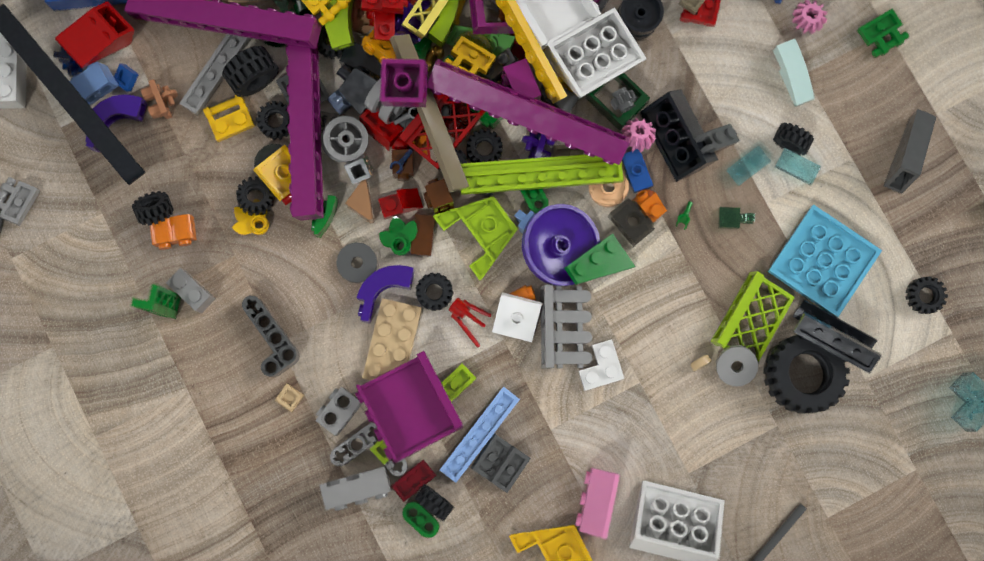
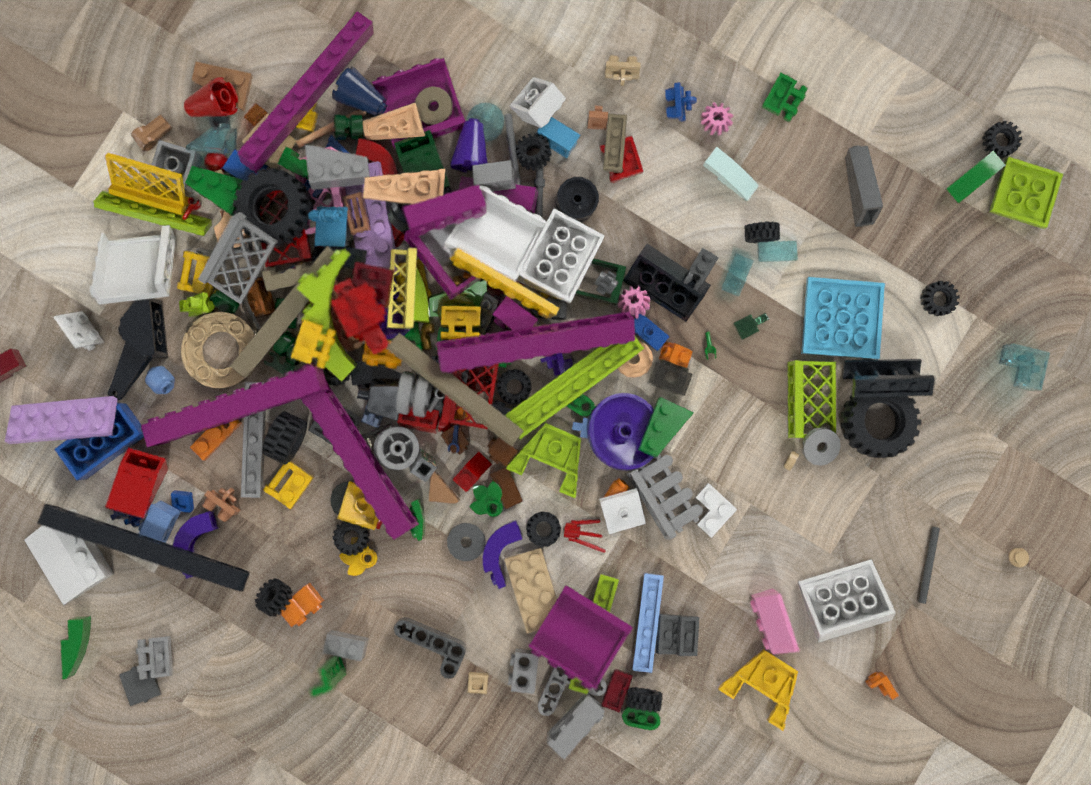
camera: 25 degrees left, 5 degrees up
(188, 39) = (213, 438): none -> orange plate
(266, 112) = (317, 465): black tyre -> none
(404, 82) = (422, 381): magenta brick -> none

